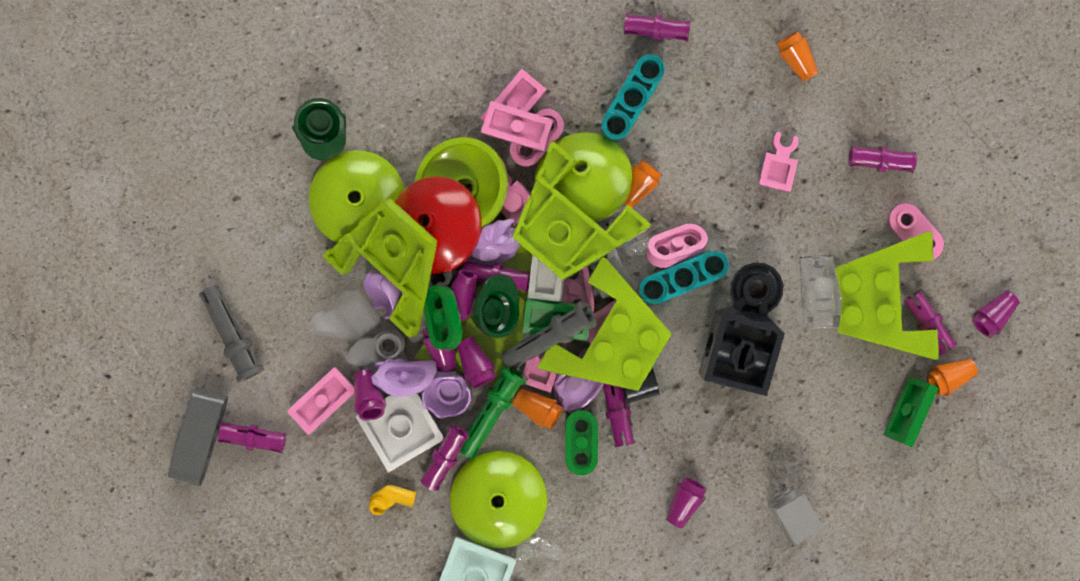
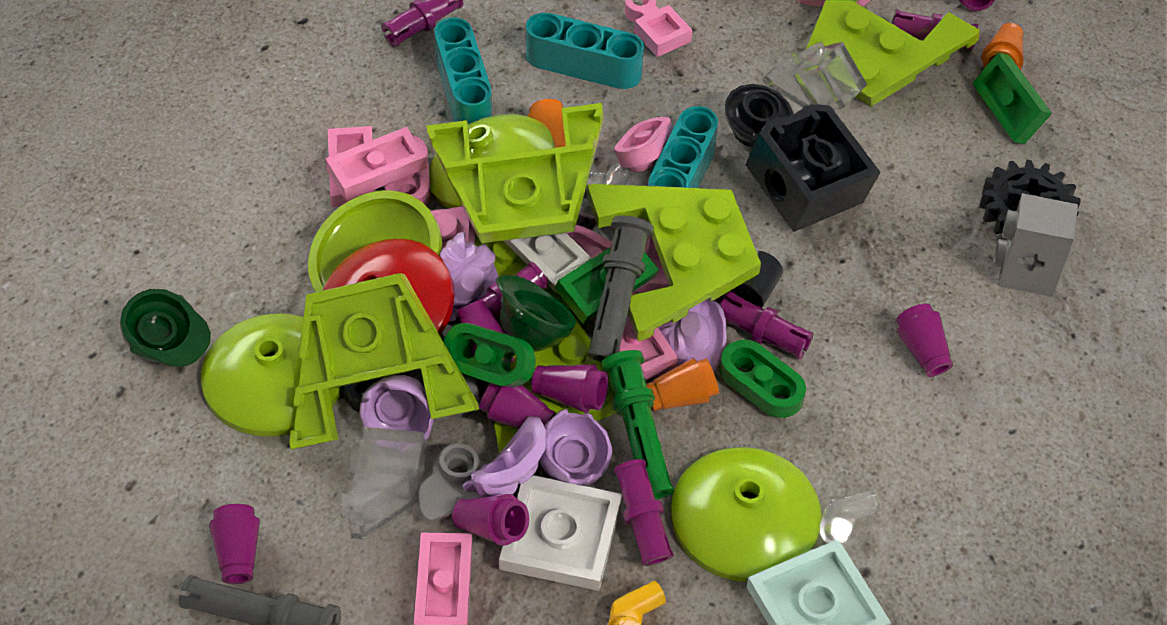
camera: 50 degrees left, 35 degrees down
(251, 284) = (235, 541): none -> magenta cone
(717, 129) = (584, 50): none -> teal beam
(847, 472) = (1006, 187): none -> black gear

